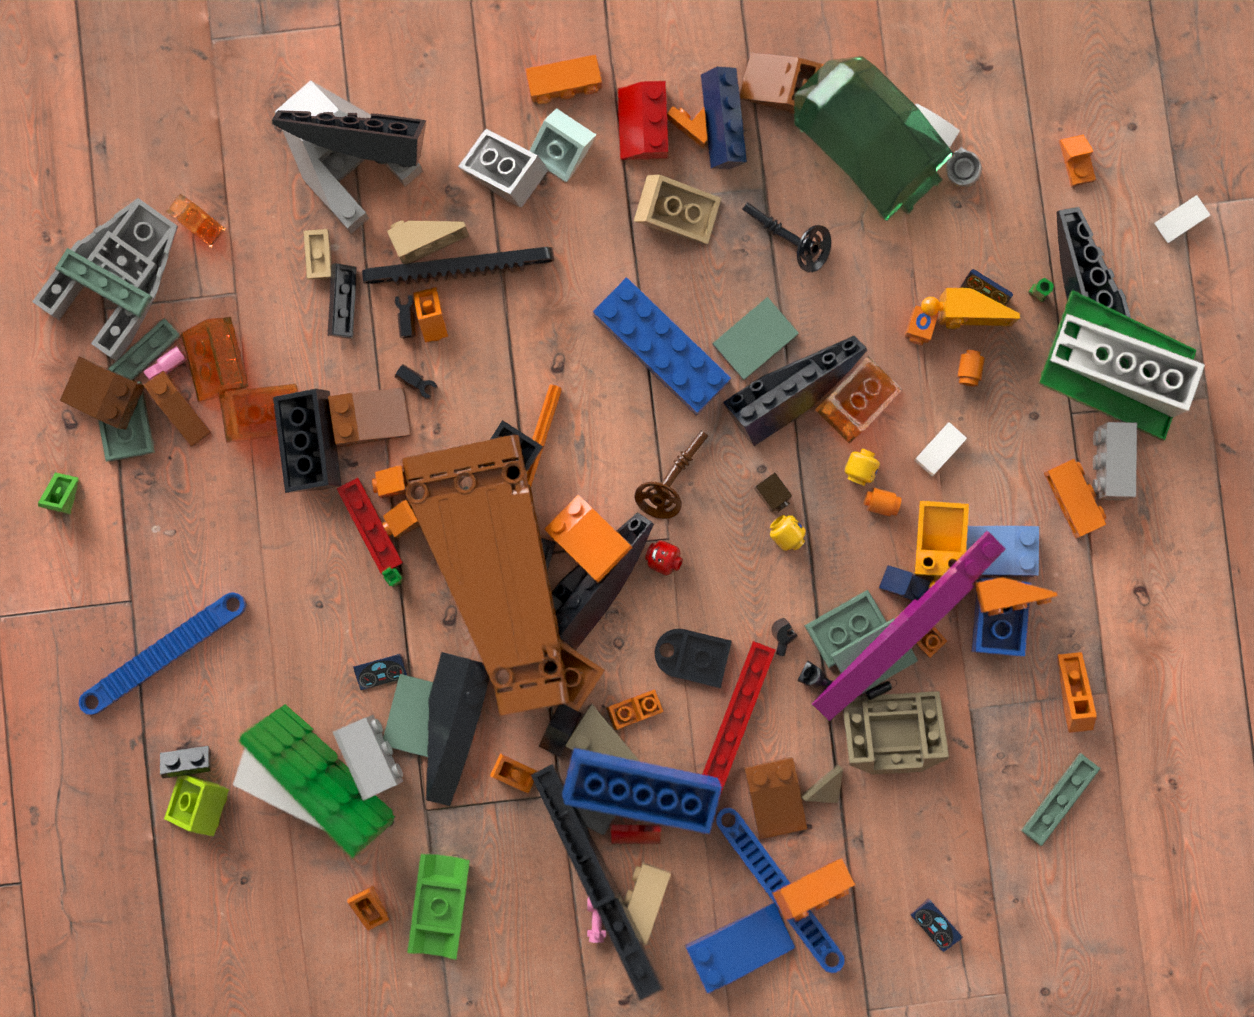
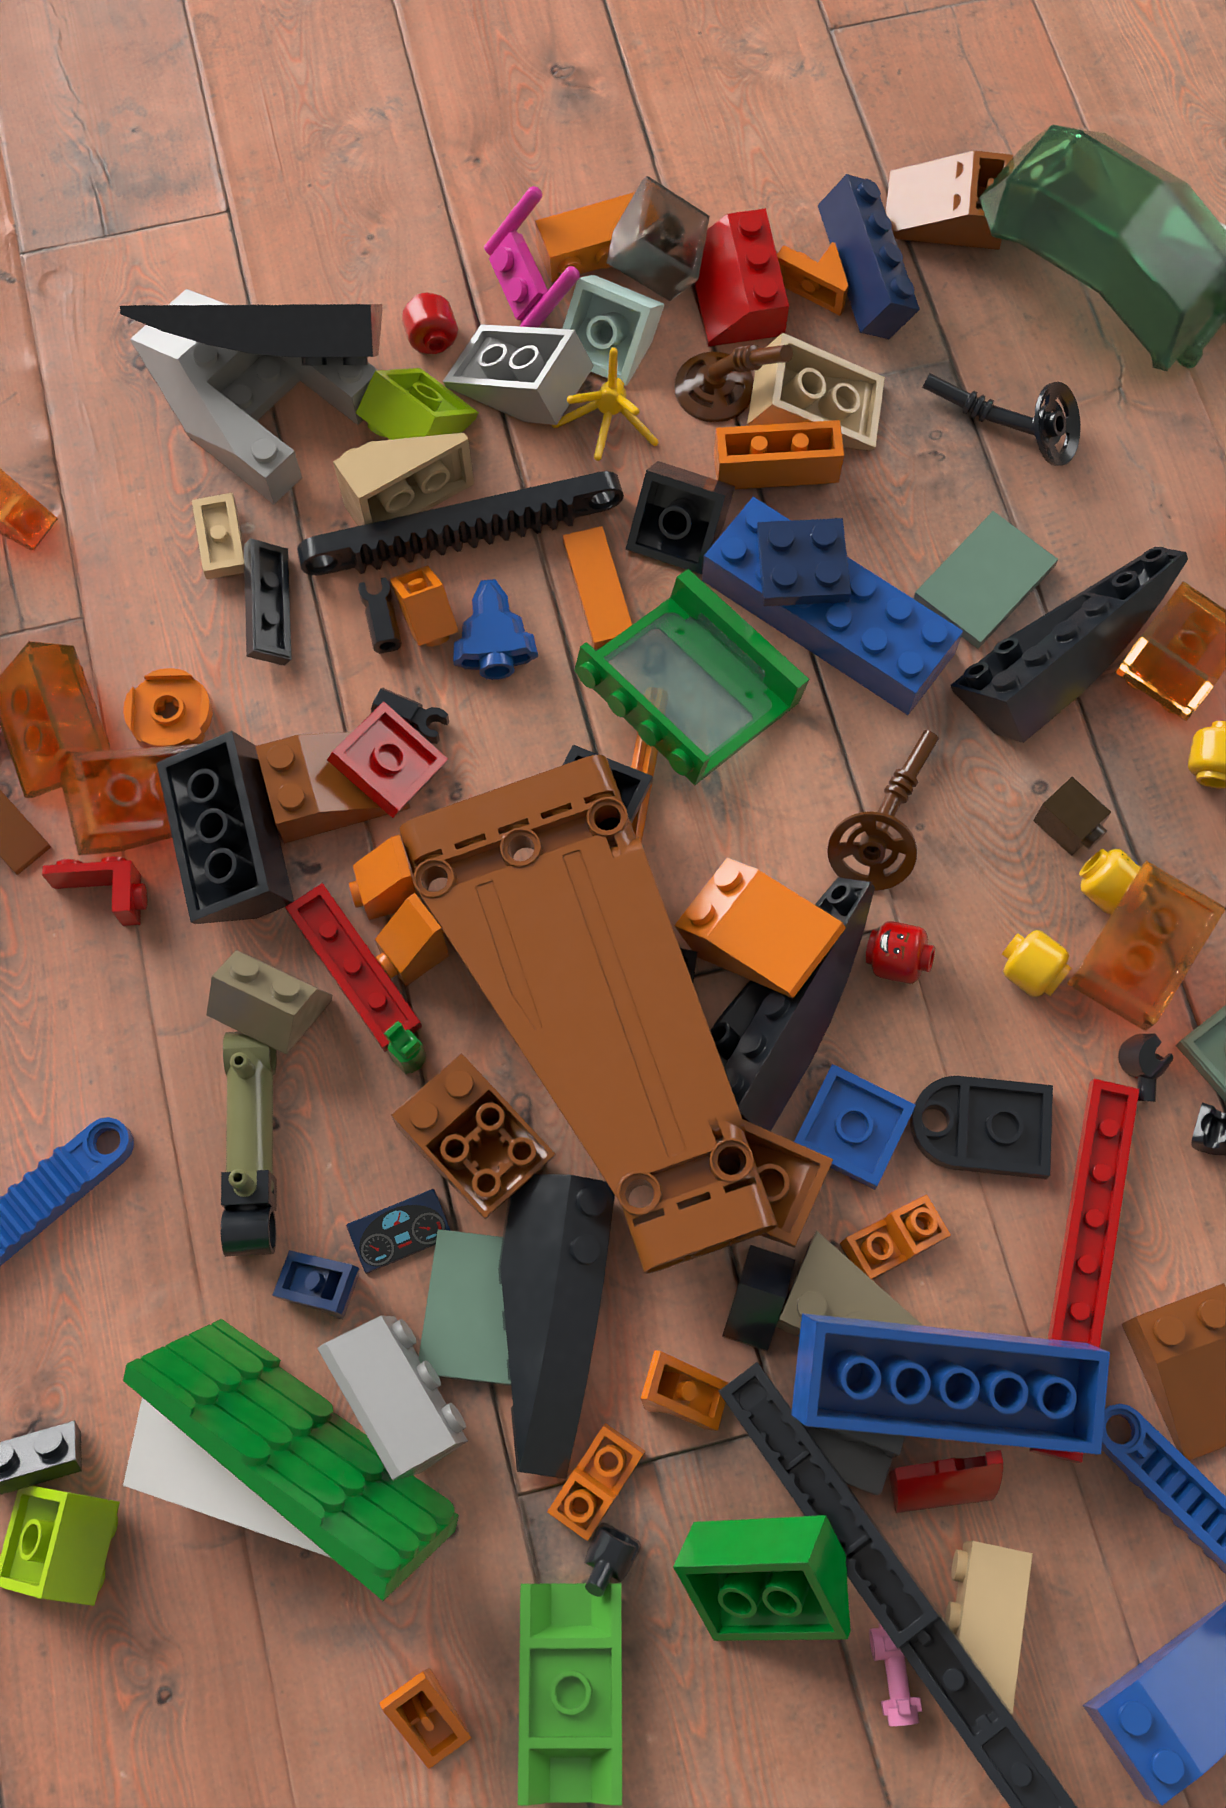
camera: 10 degrees left, 15 degrees down
(252, 468) = (128, 892): none -> red bracket
(270, 370) = (151, 696): none -> orange plate
(305, 632) = (249, 1181): none -> olive piece
(322, 542) = (264, 1001): none -> dark tan slope
(334, 694) = (317, 1283): none -> dark blue slope
(400, 410) = (387, 759): none -> plate
(423, 630) = (472, 1136): none -> dark orange slope
(440, 187) = (412, 405): none -> lime slope
(454, 127) = (428, 322): none -> red head
(464, 809) = (596, 1481): none -> orange slope
(466, 846) = (610, 1556): none -> black piece
(468, 338) = (493, 635): none -> blue rock
(512, 100) = (518, 271): none -> dark pink plate
(532, 314) = (597, 584): none -> orange tile
(538, 868) = (767, 1579): none -> green slope
(554, 195) = (610, 401): none -> yellow plant
(574, 383) = (693, 679): none -> panel
(584, 277) = (678, 516): none -> black slope
(598, 94) = (659, 240): none -> clear smoke slope
(623, 190) = (720, 377): none -> reddish brown dish
(623, 648) = (855, 1125): none -> blue plate
(646, 247) = (779, 454): none -> orange brick
(646, 326) = (803, 562): none -> dark blue plate
(735, 573) = (1036, 963): none -> yellow head
(794, 574) = (1146, 946): none -> clear orange slope

